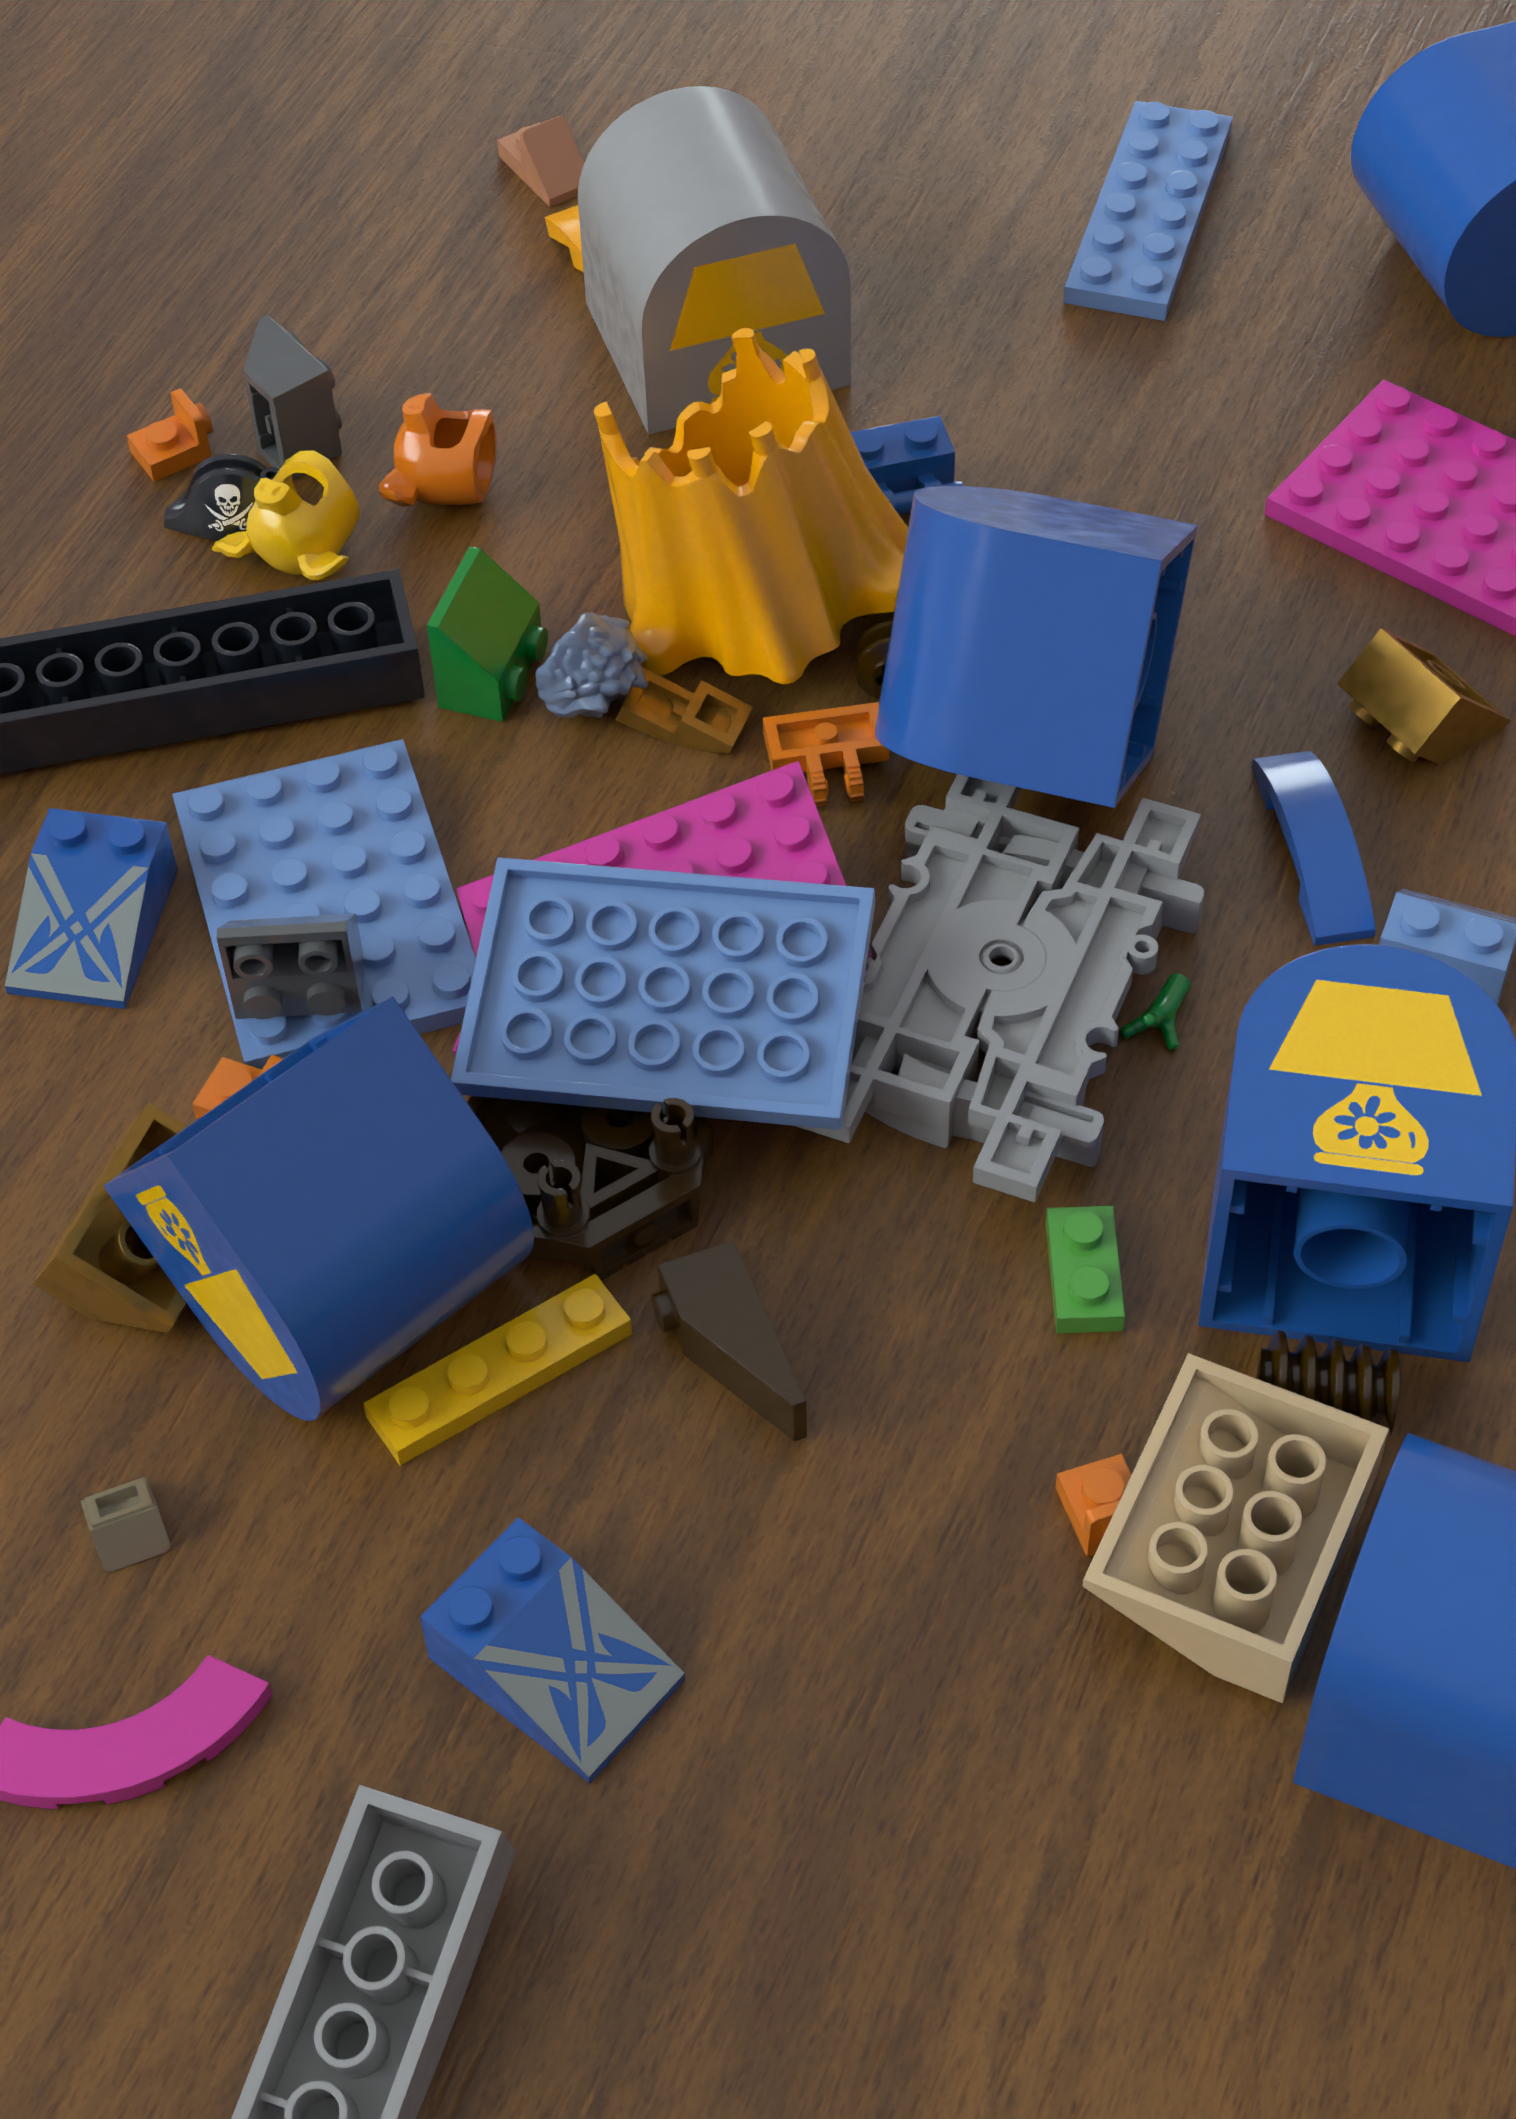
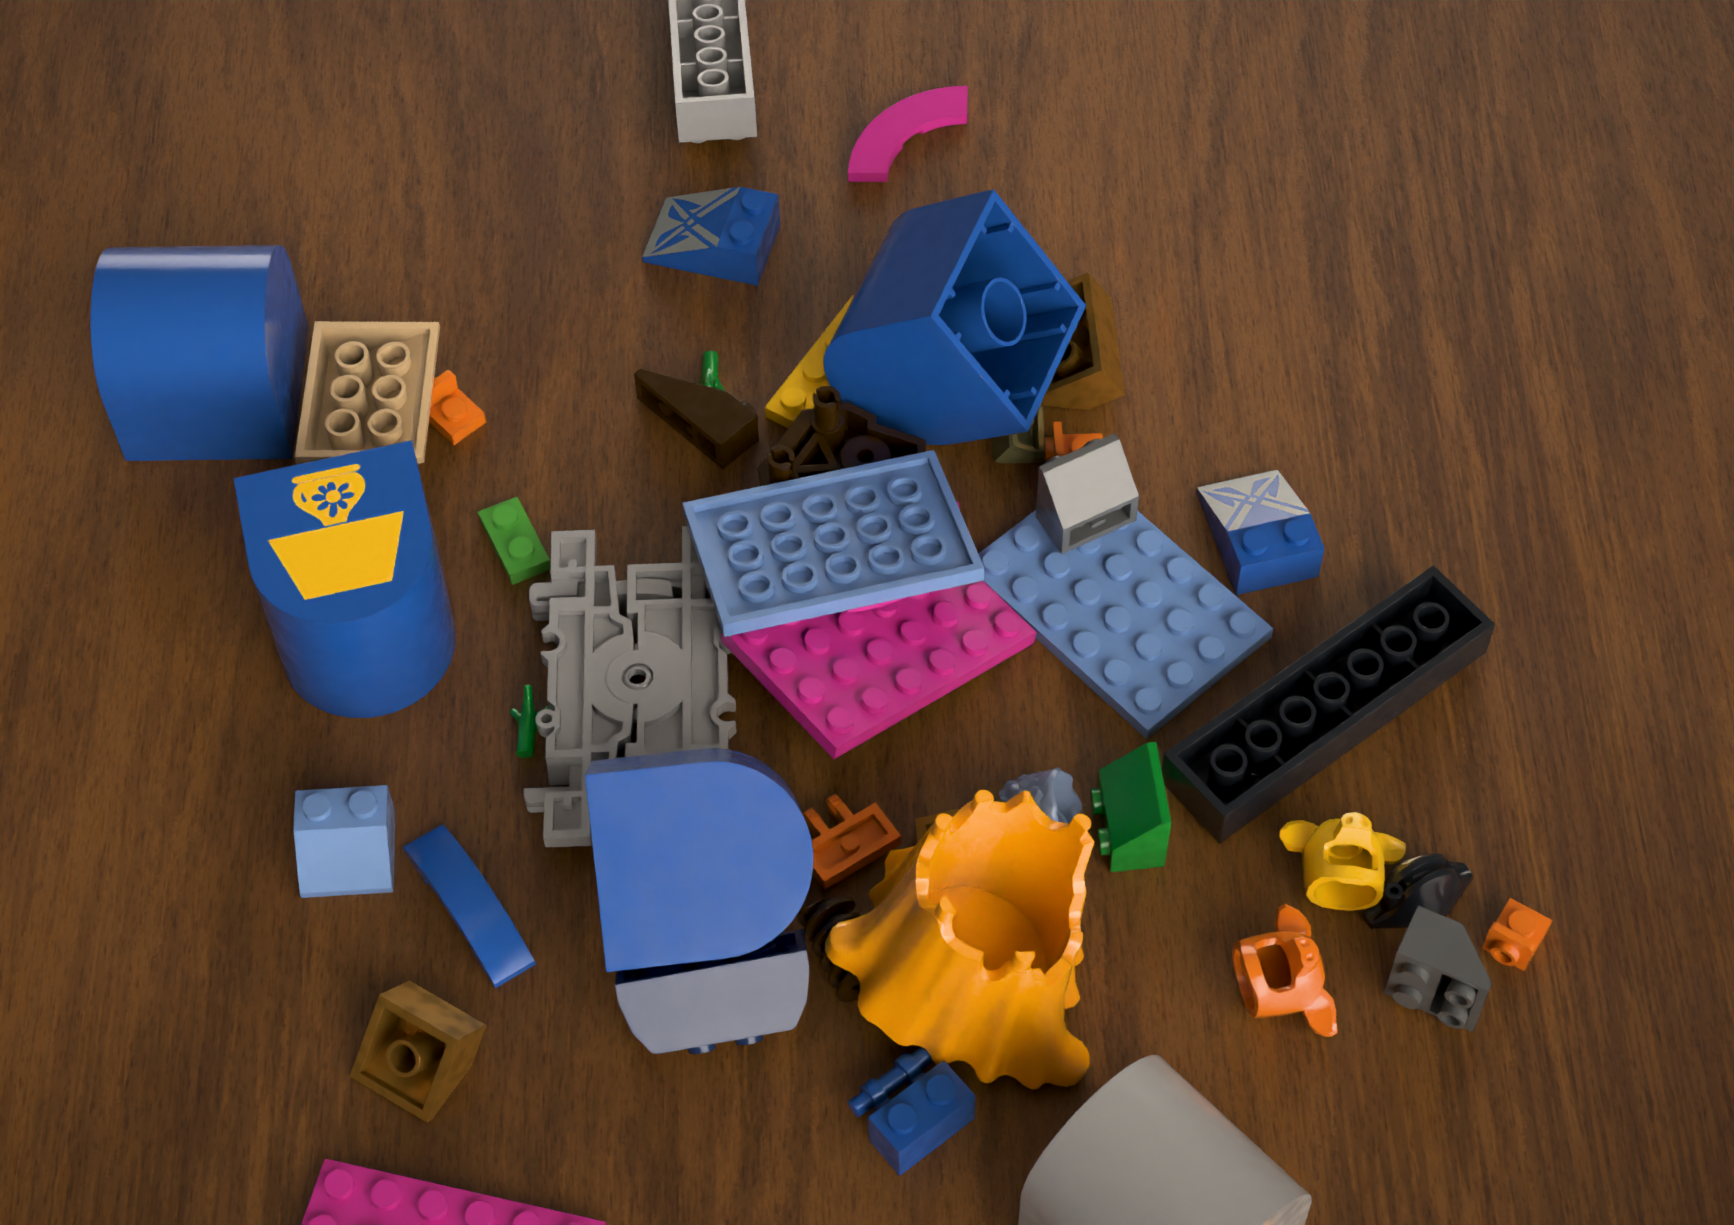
camera: 155 degrees right, 5 degrees up
(687, 1405) = (709, 373): none -> green bar

